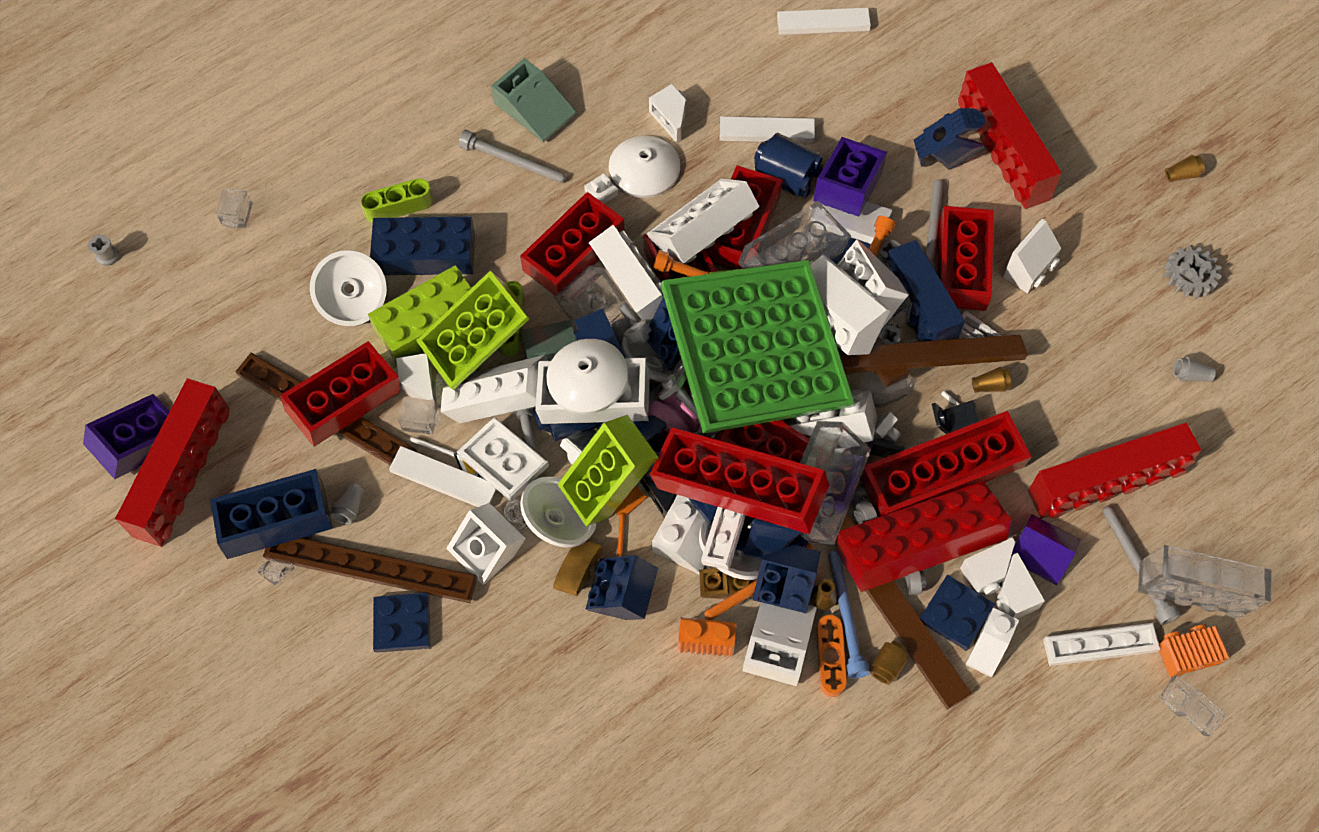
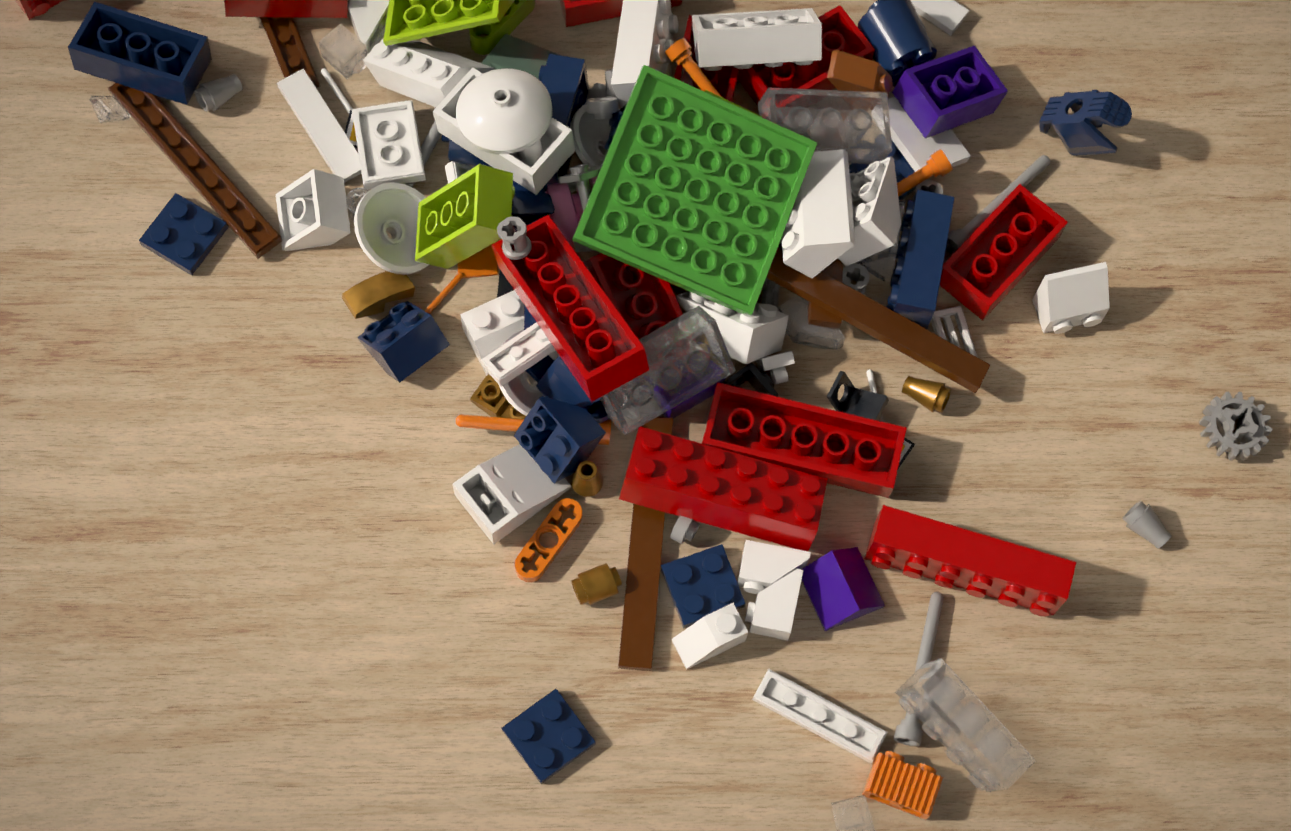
camera: 30 degrees right, 5 degrees up
(590, 293) = (593, 40): clear slope -> none
(669, 456) = (519, 239): none -> light grey bush
(707, 636) = (444, 439): orange brick -> none
(789, 201) = (856, 73): none -> dark orange slope
(857, 665) = (564, 566): medium blue piece -> none
(864, 509) = (691, 429): light grey plate -> none
(941, 792) = (548, 736): none -> dark blue plate
(1010, 137) = (1154, 157): red brick -> none

